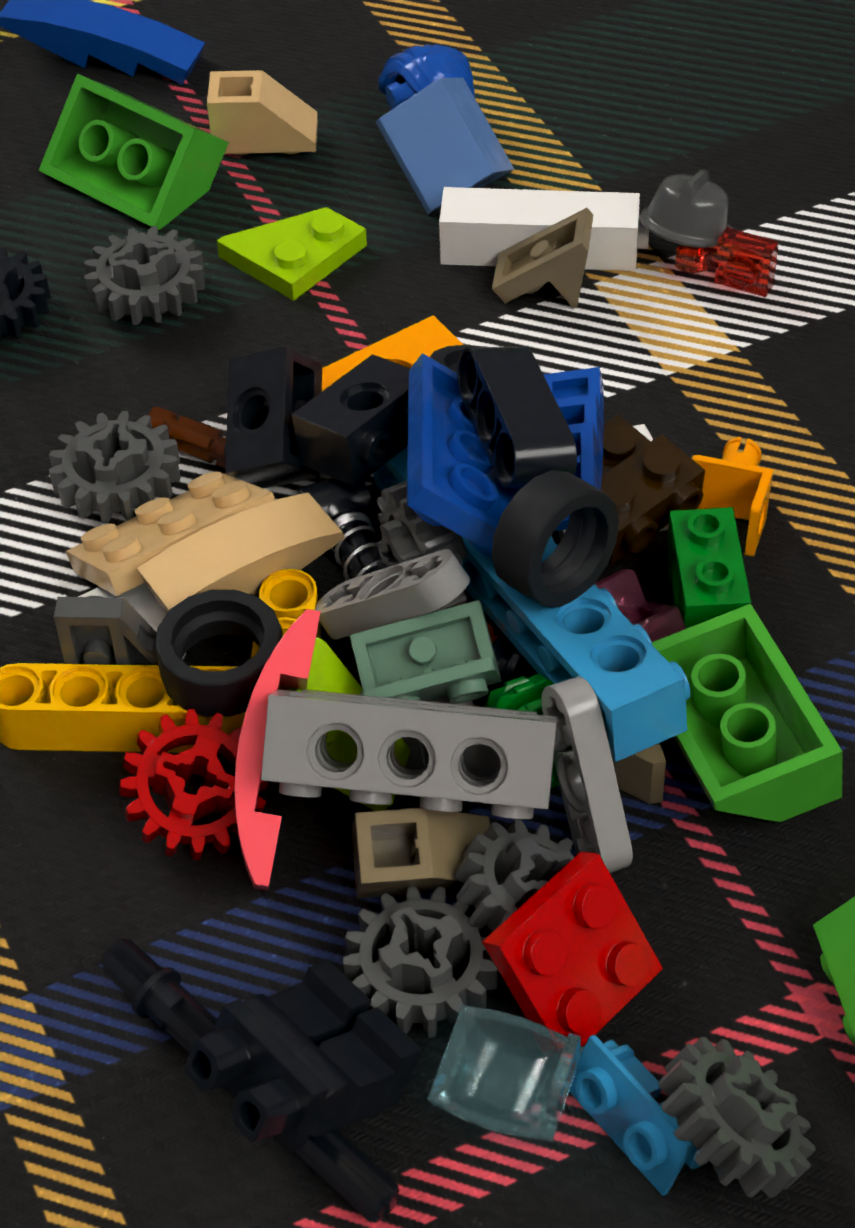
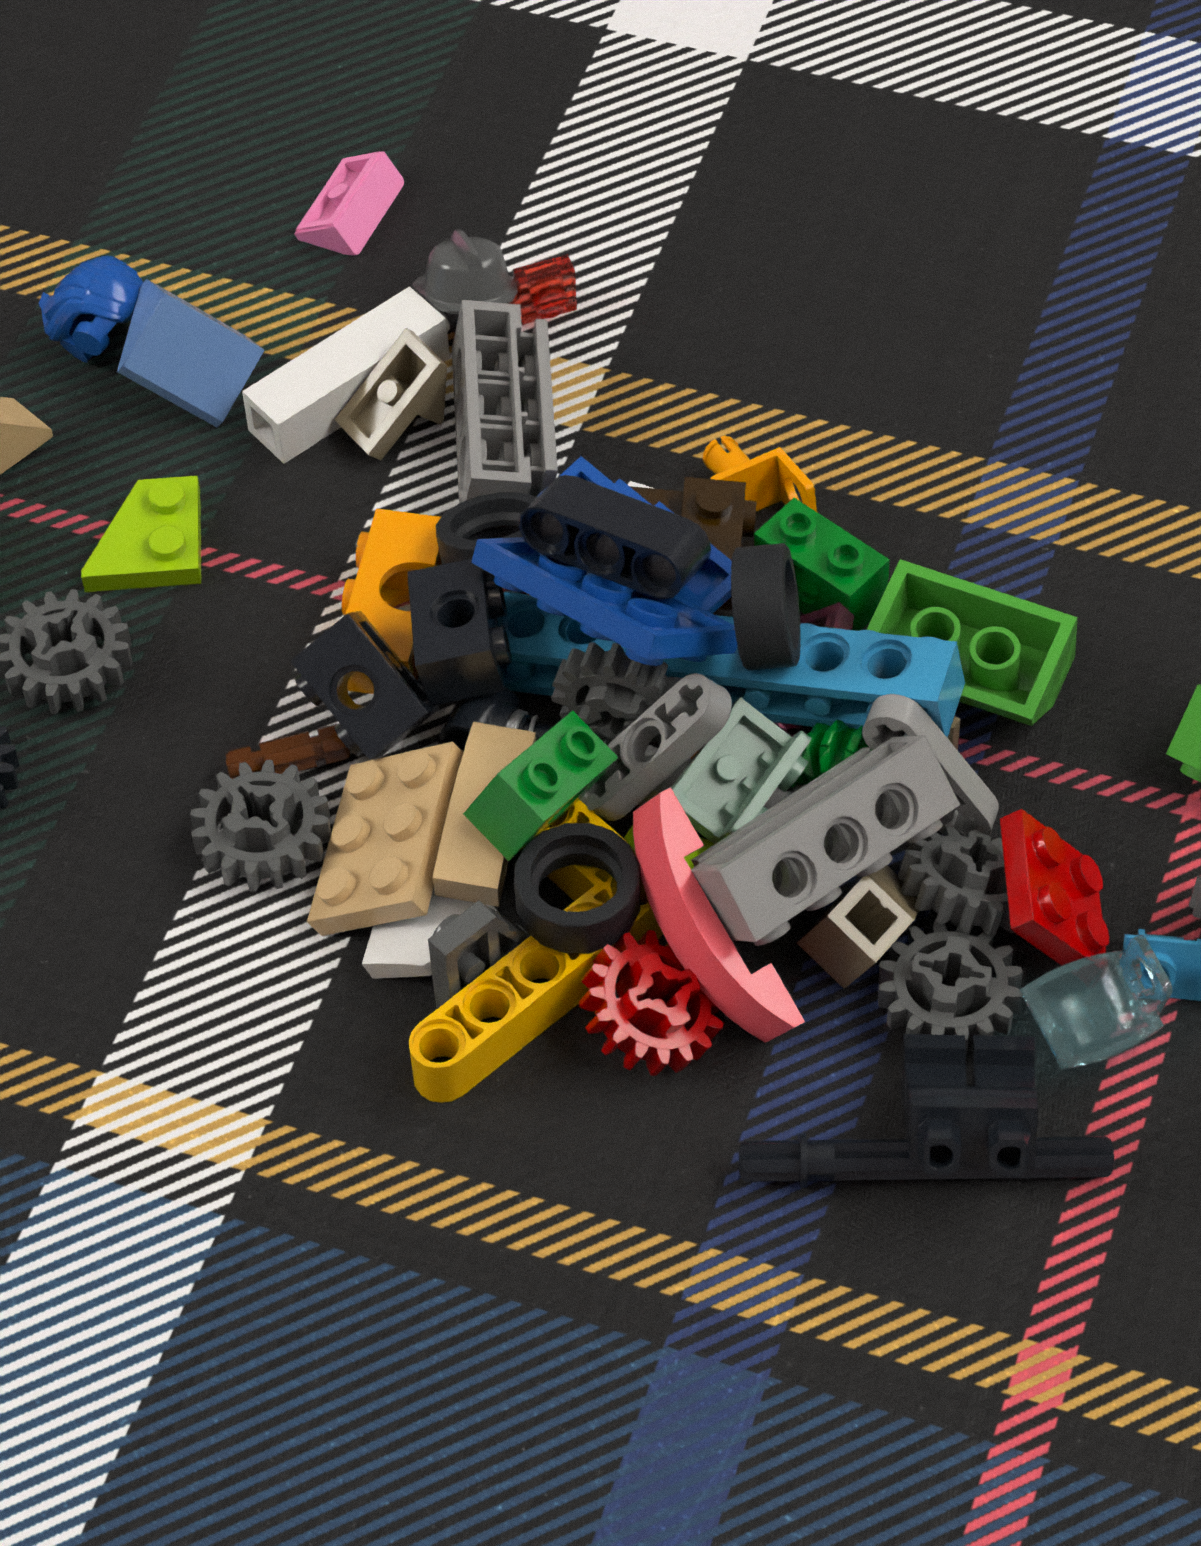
camera: 45 degrees left, 5 degrees up
(268, 553) = (540, 785): none -> green brick
(617, 300) = (502, 402): none -> light grey brick
(689, 135) = (351, 204): none -> bright pink slope

